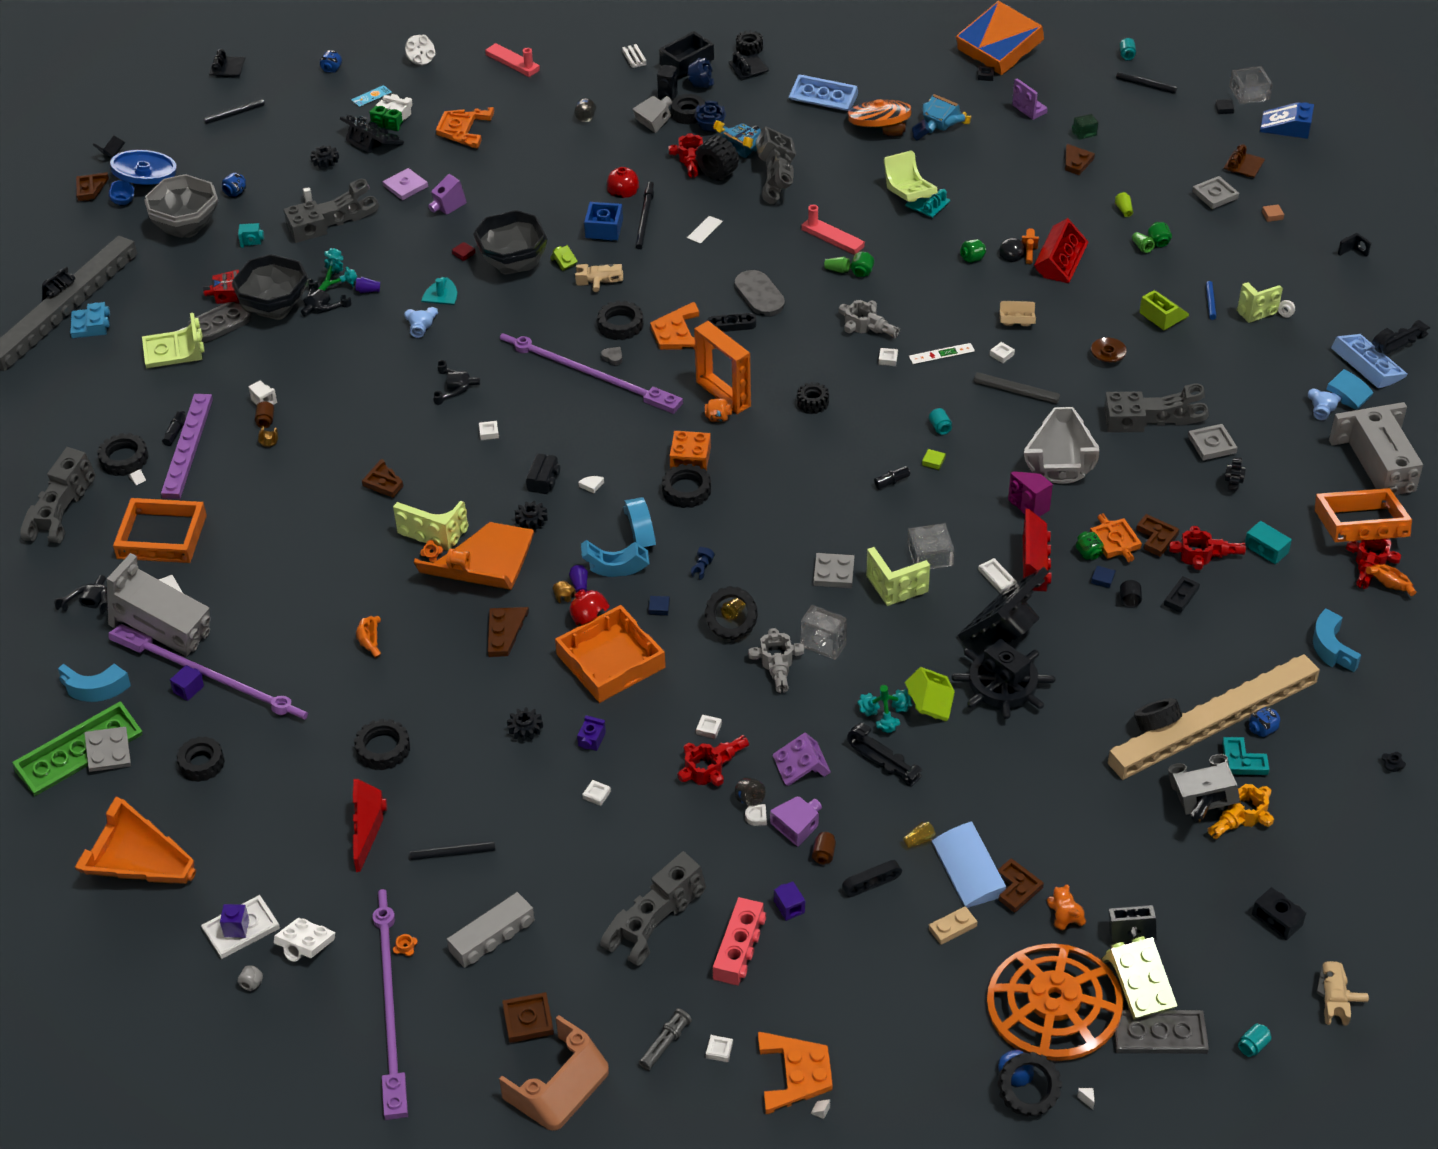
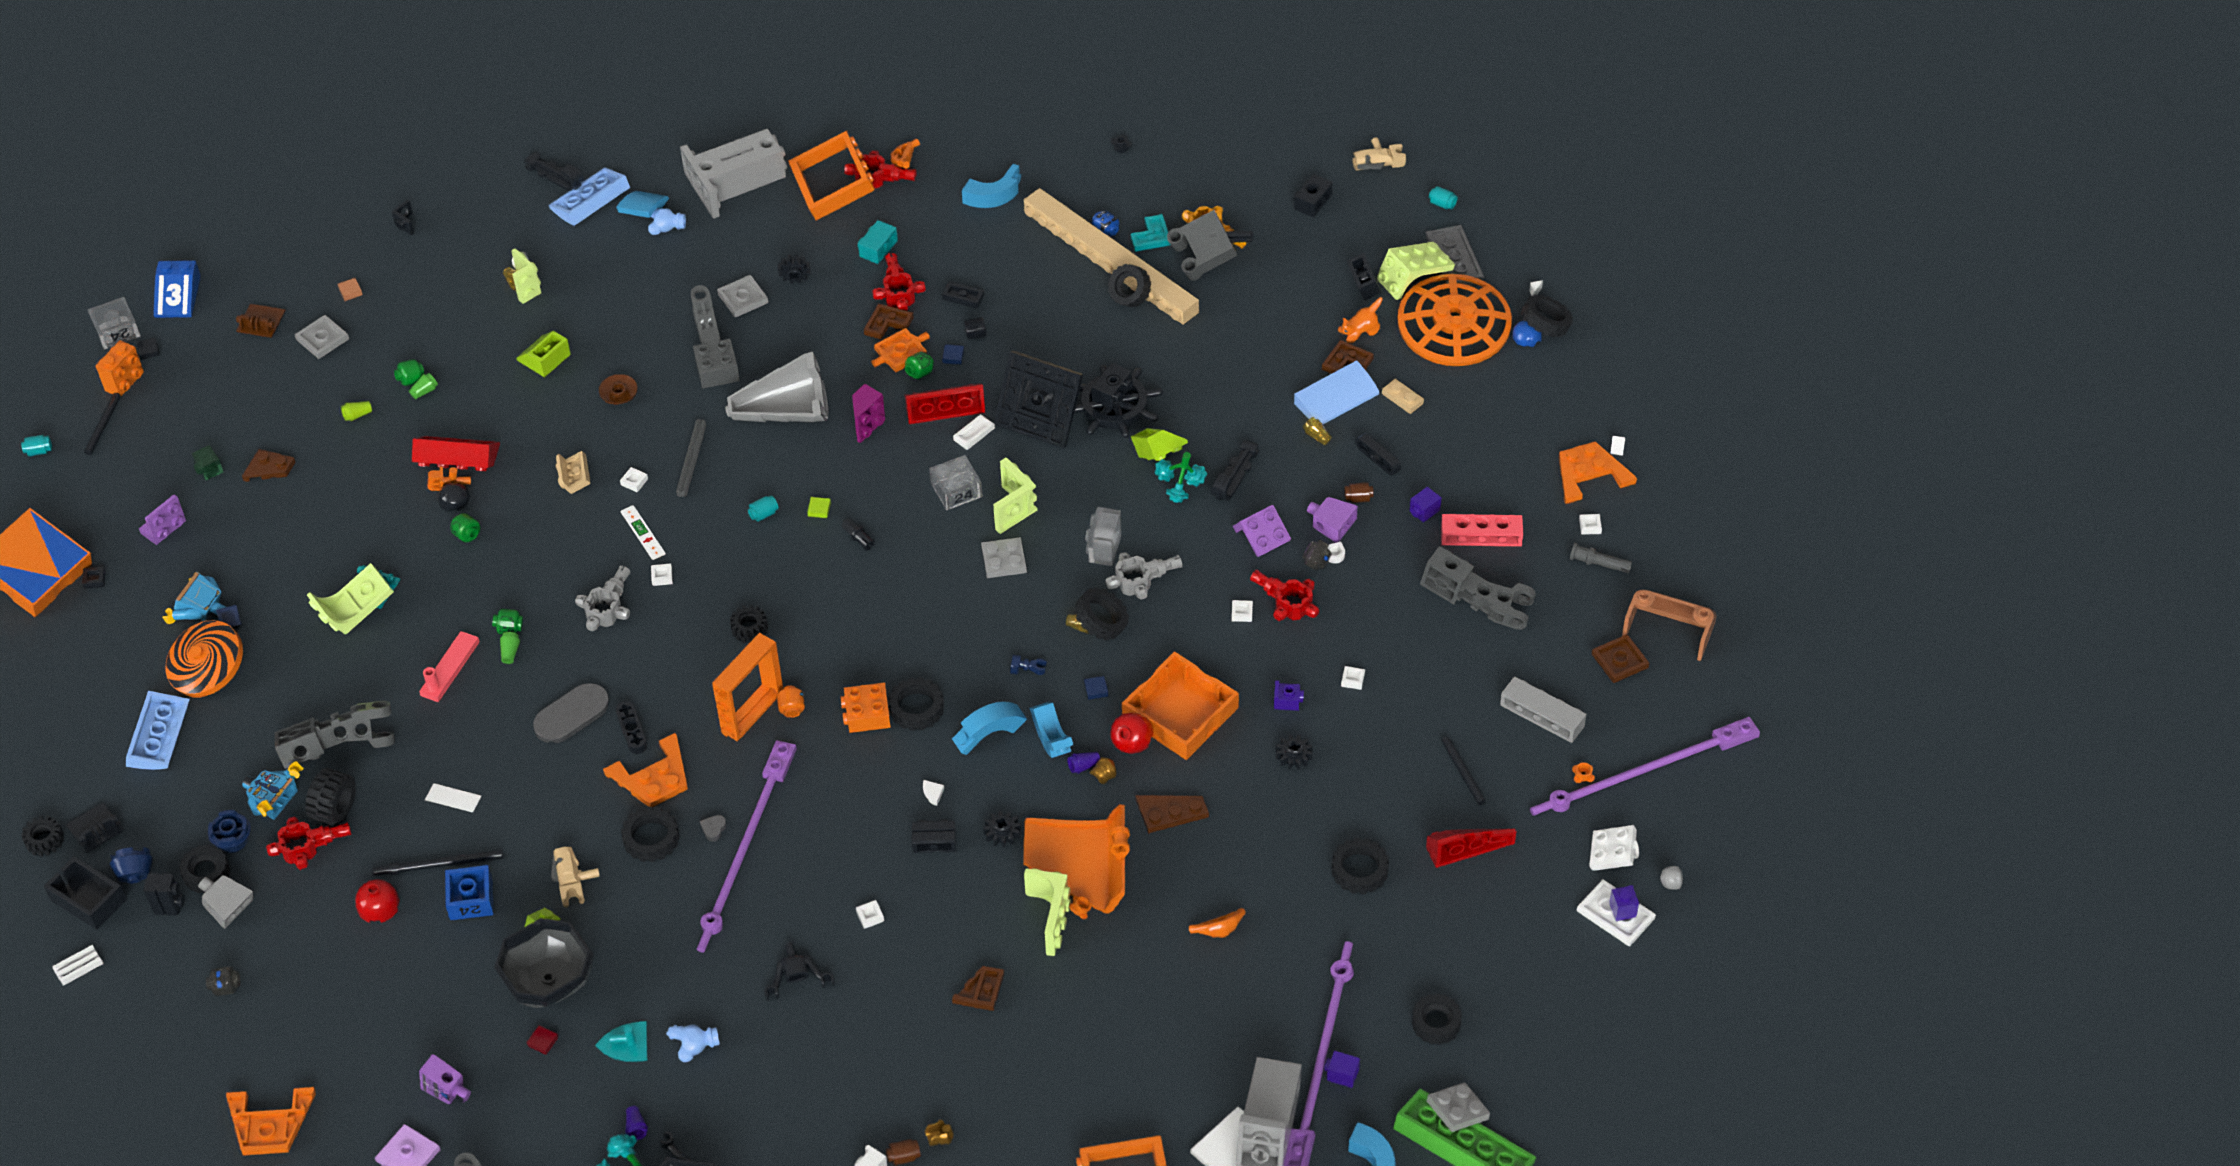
camera: 105 degrees left, 5 degrees up
(135, 850) = (1583, 1024): orange cone -> none
(521, 64) = (96, 1110): coral piece -> none
(1195, 83) = (119, 368): none -> orange brick
(1211, 301) = (512, 323): blue bar -> none

